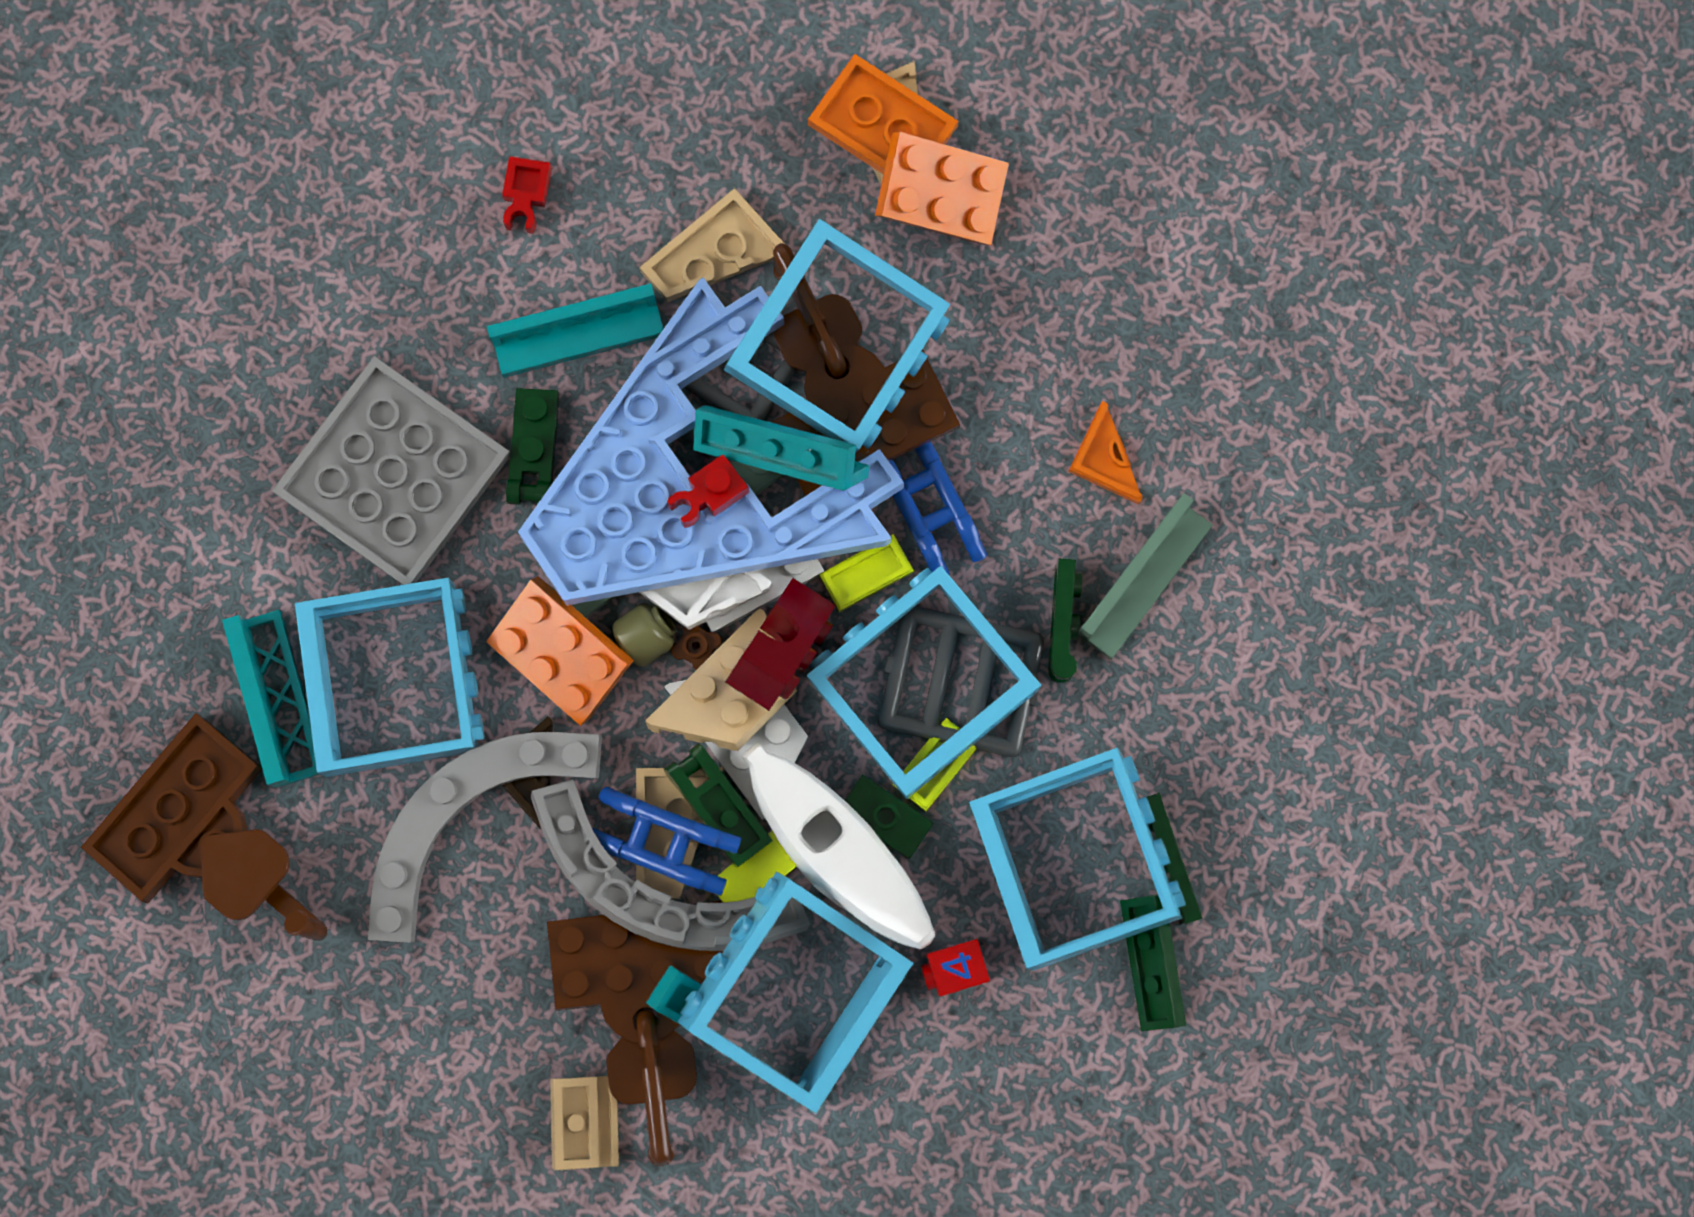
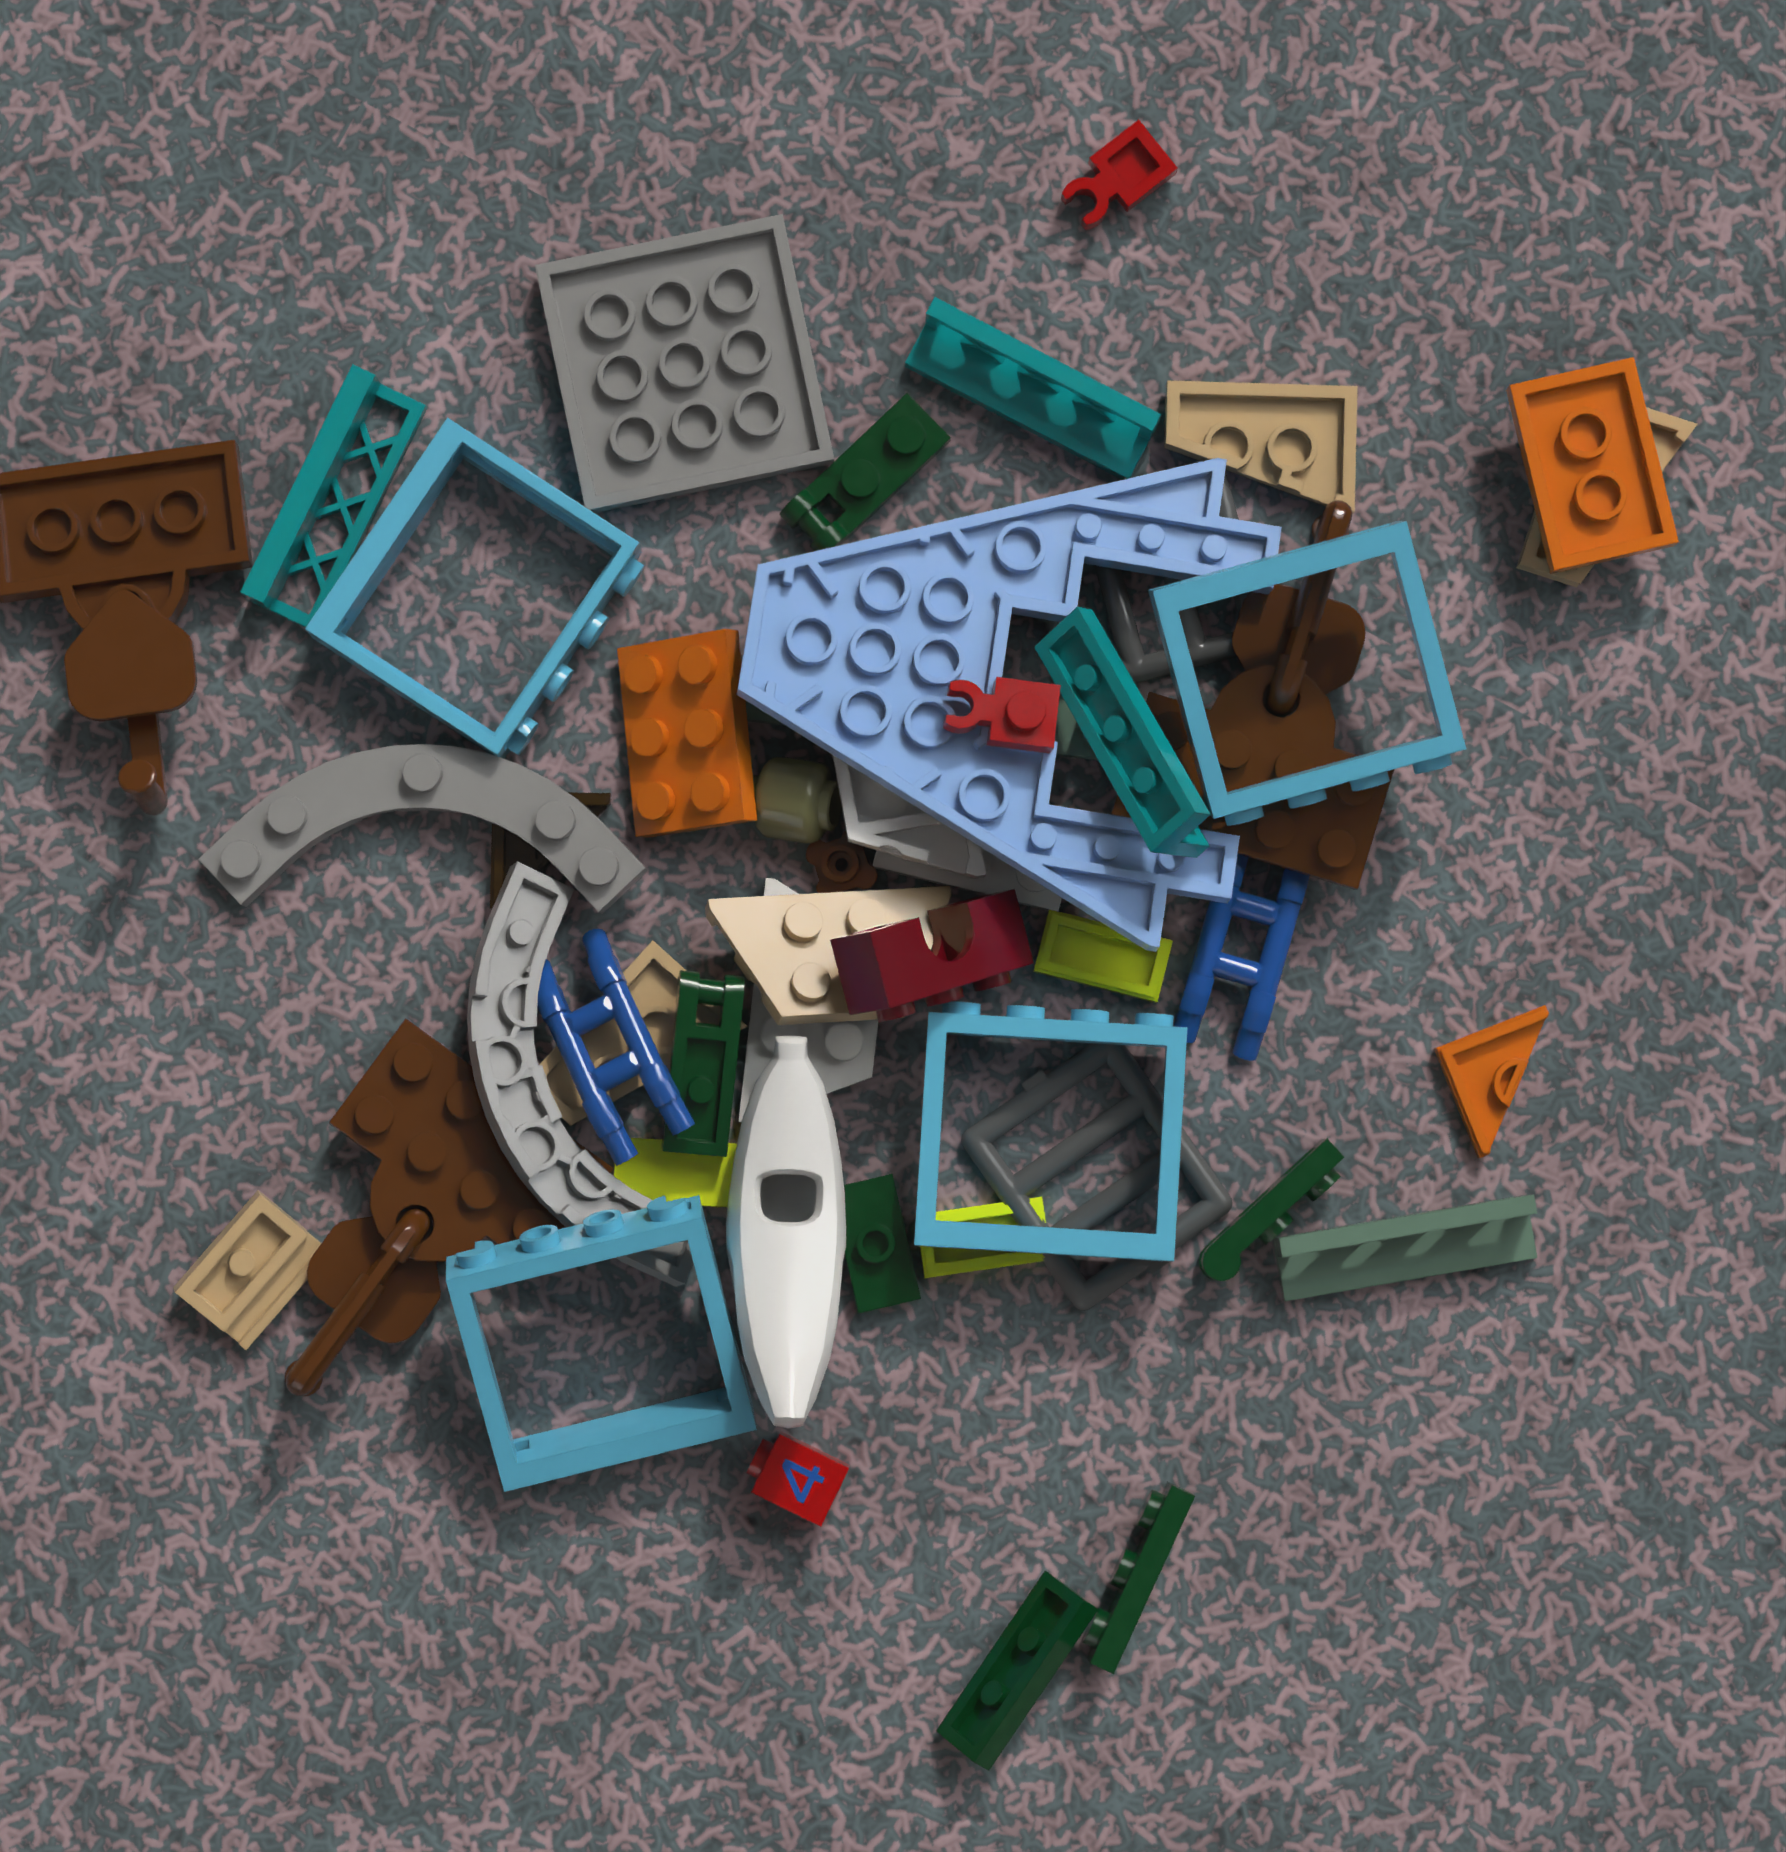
camera: 40 degrees right, 5 degrees up
(671, 993) = (466, 1221): teal plate -> none
(941, 188) = (1587, 602): orange plate -> none
(1007, 878) = (942, 1439): medium azure window -> none

